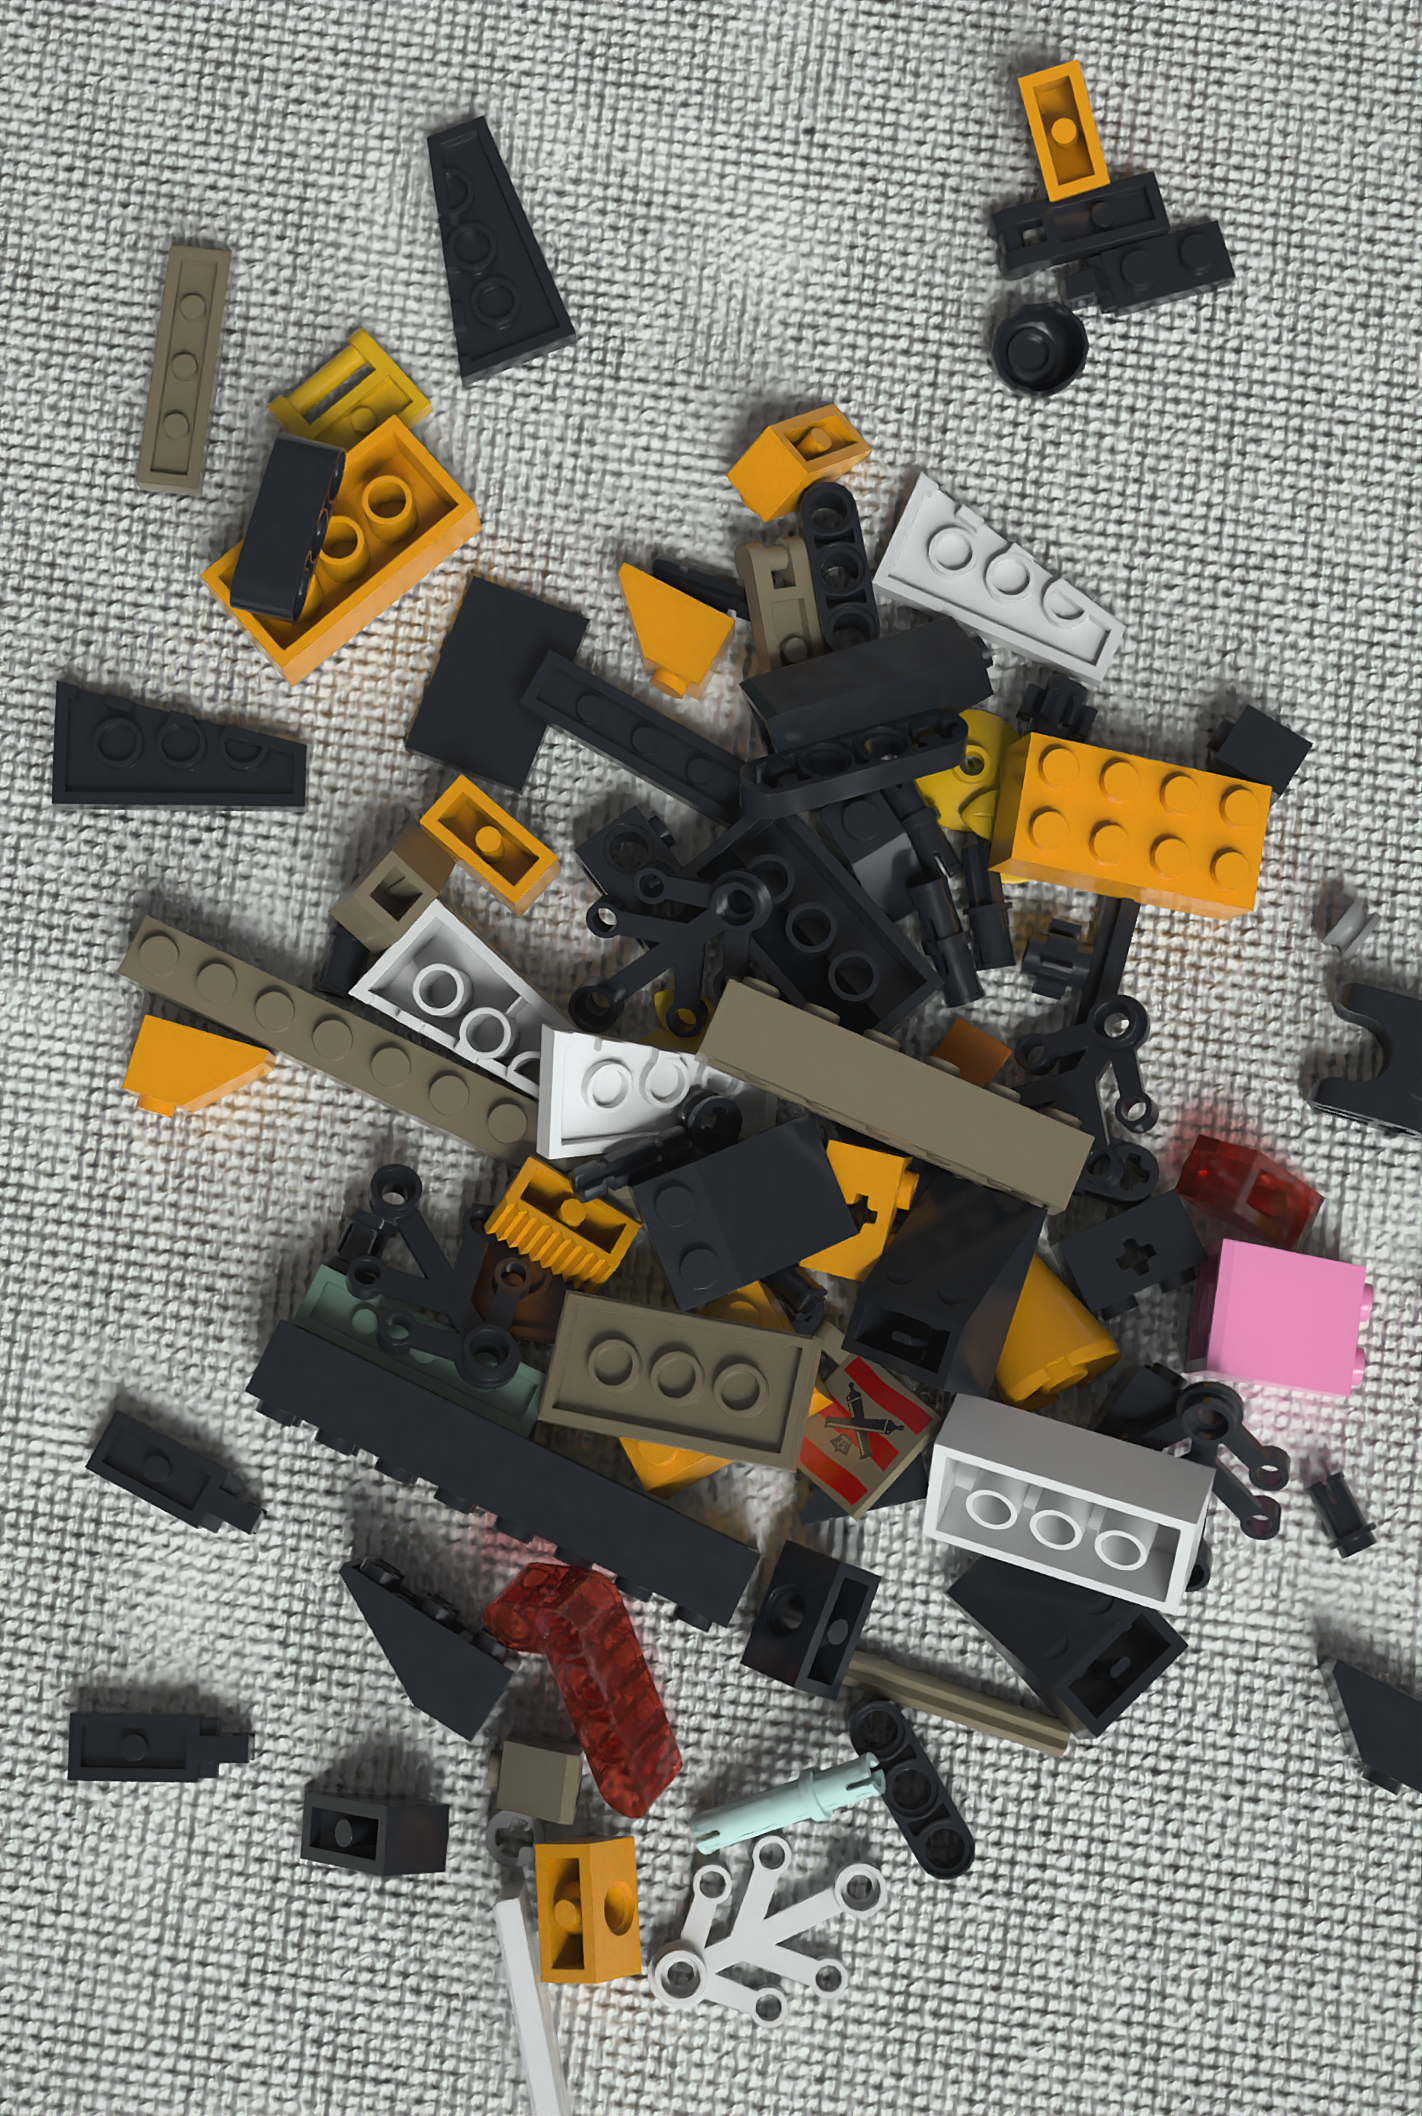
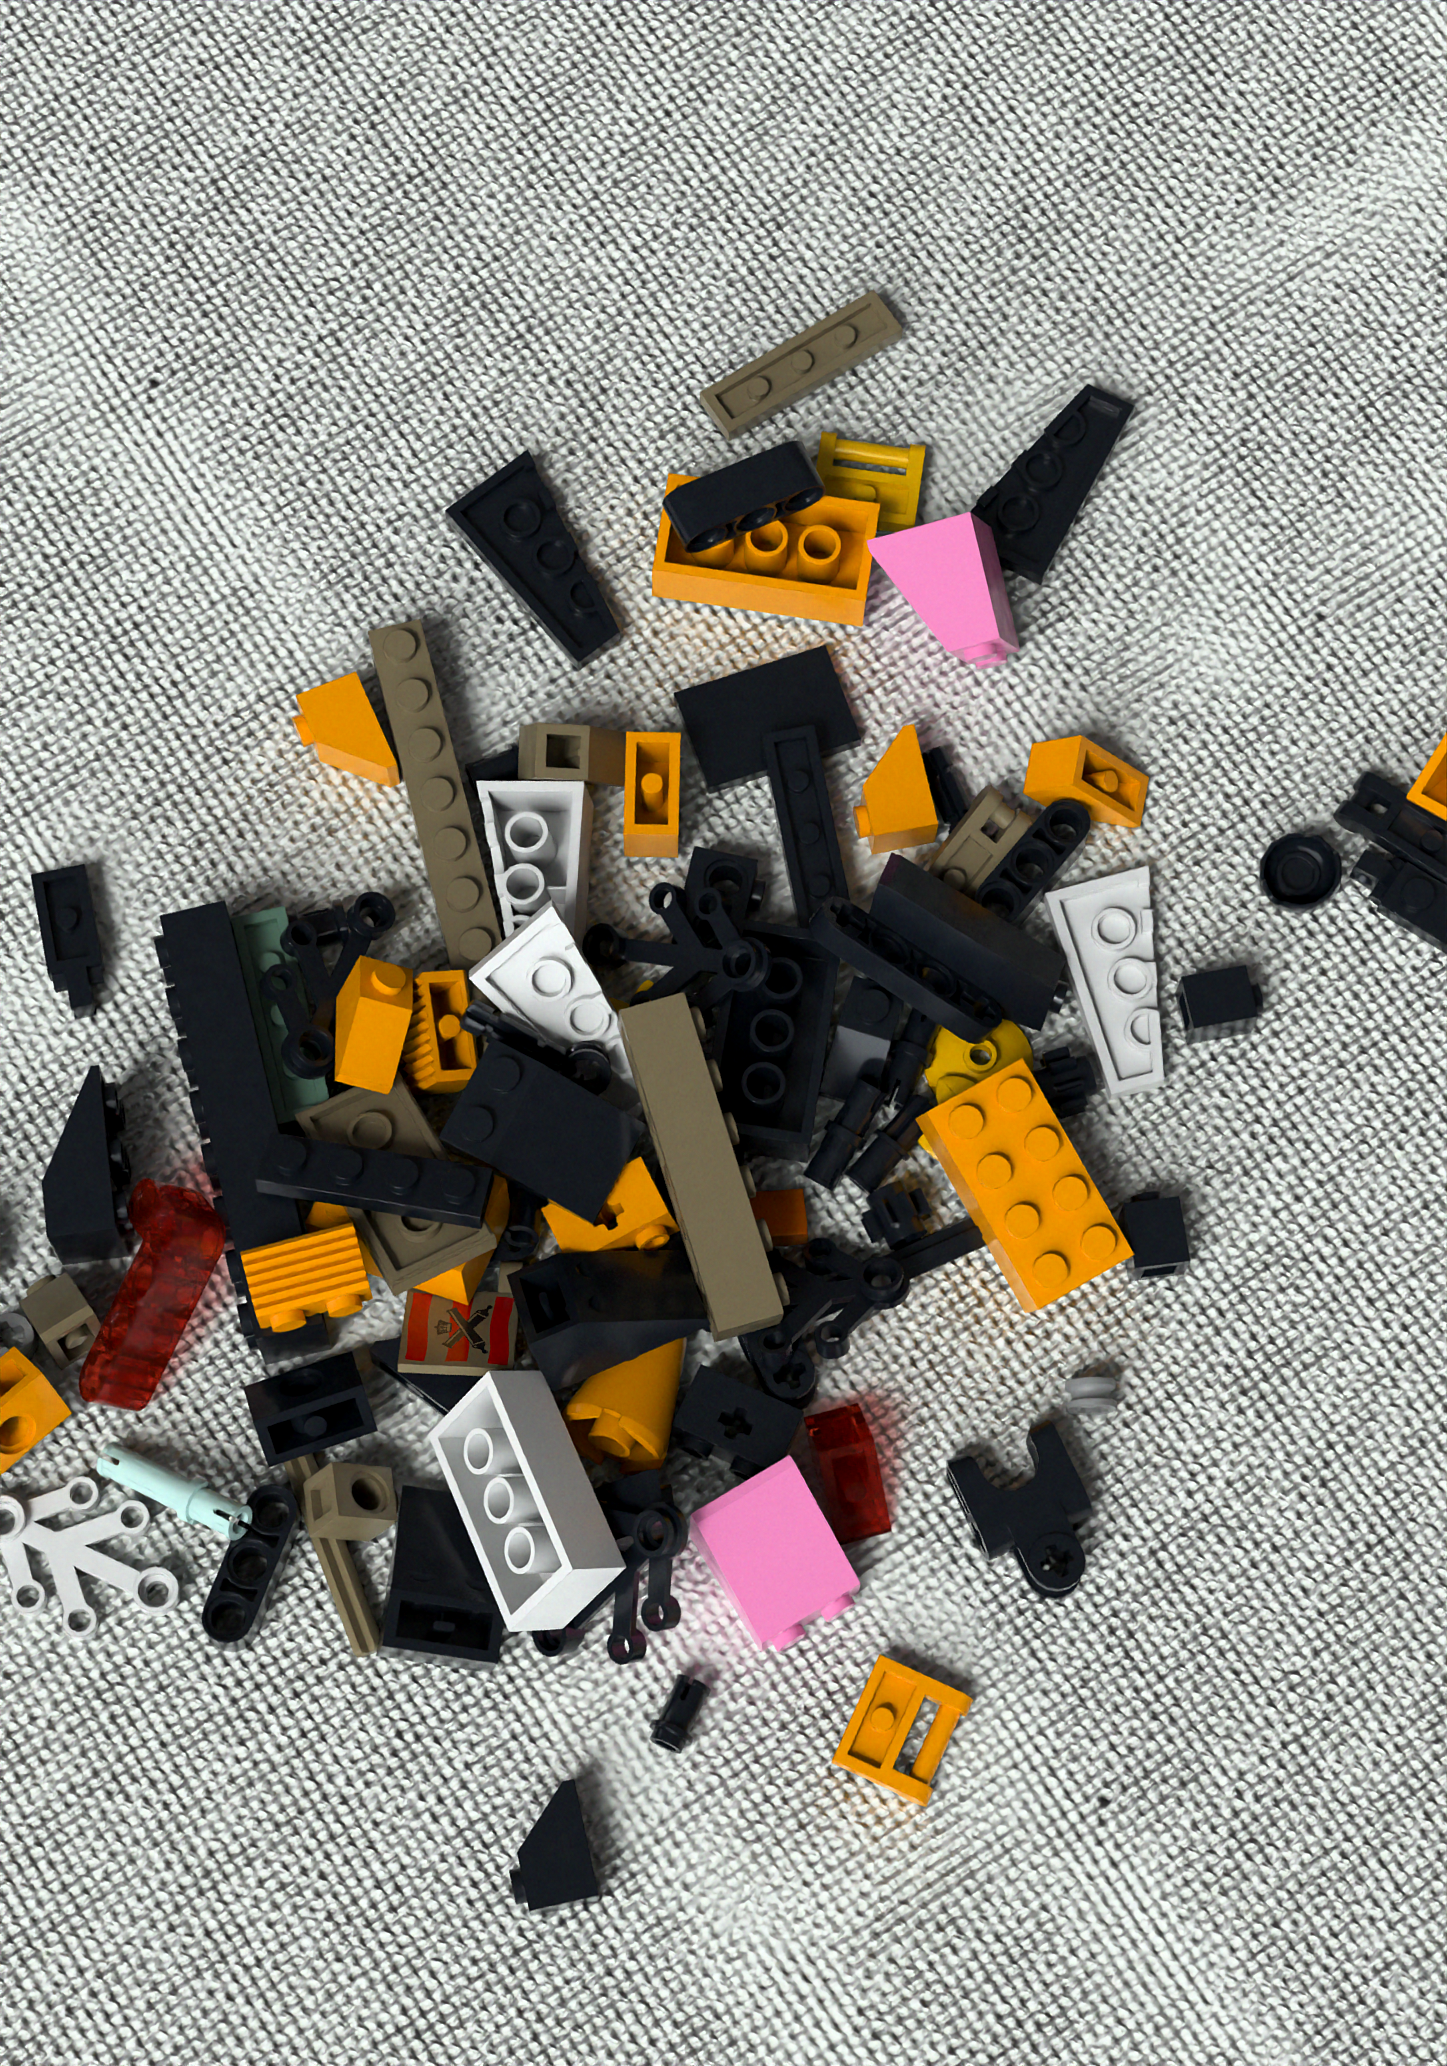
camera: 50 degrees right, 10 degrees down
(514, 1281) = (372, 1023): none -> light orange slope
(528, 419) = (954, 585): none -> bright pink slope
(673, 1402) = (375, 1180): none -> black plate
(715, 1538) = (306, 1277): none -> light orange brick
(919, 1673) = (350, 1501): none -> dark tan brick
(1095, 522) = (1218, 1004): none -> black brick

